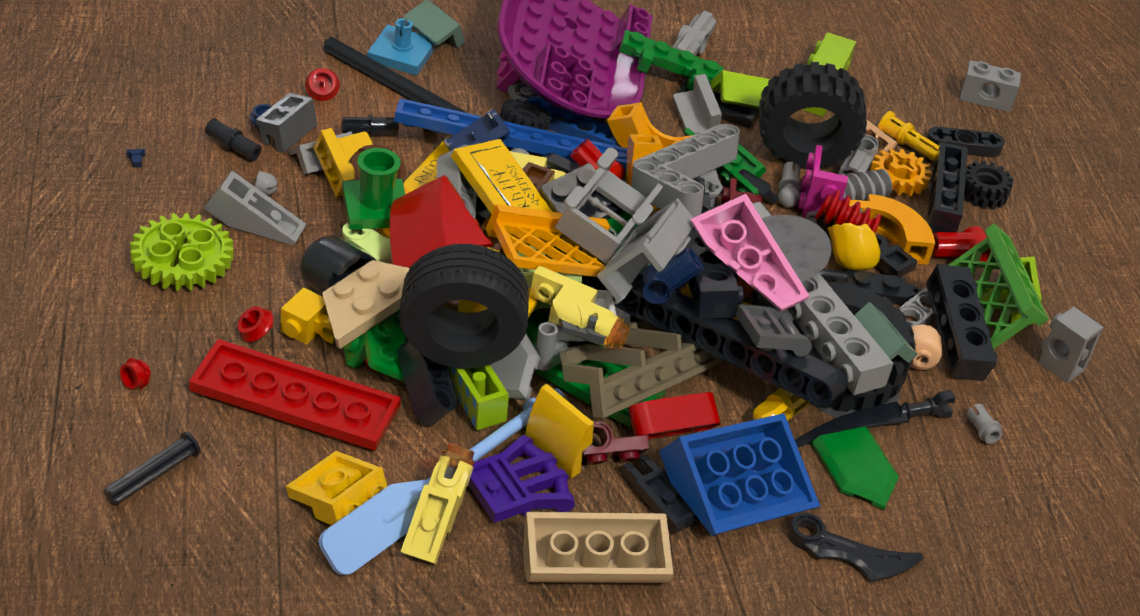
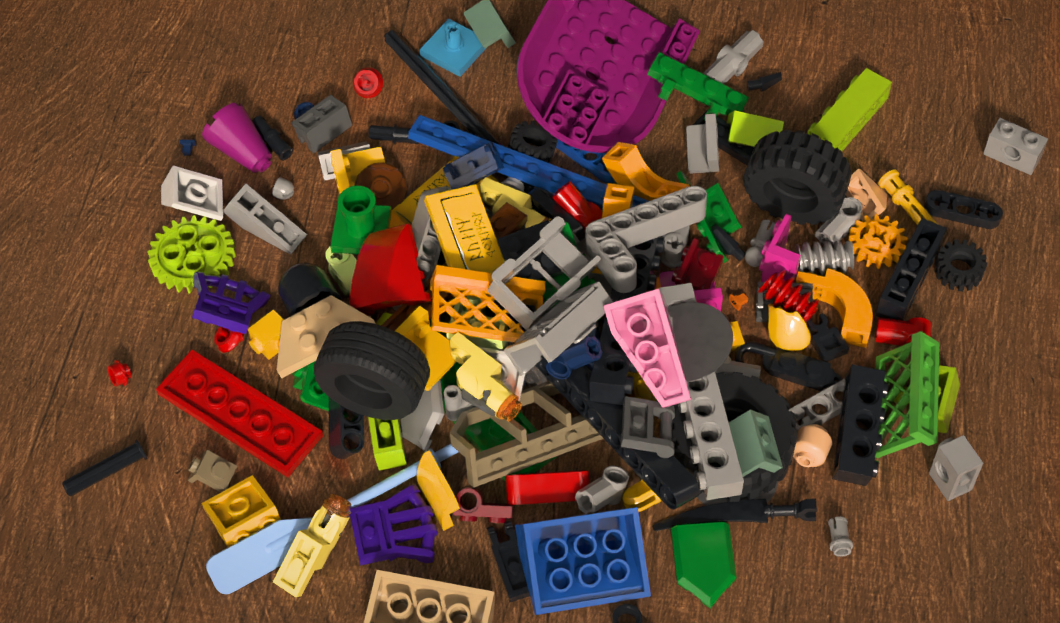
camera: 25 degrees right, 15 degrees up
(162, 193) = (193, 193): none -> white slope
(199, 139) = (238, 138): none -> magenta cone
(244, 285) = (222, 310): none -> dark purple plate
(283, 451) = (211, 470): none -> dark tan bracket
(729, 56) = (764, 82): none -> black bar
(735, 408) = (603, 491): none -> light grey piece

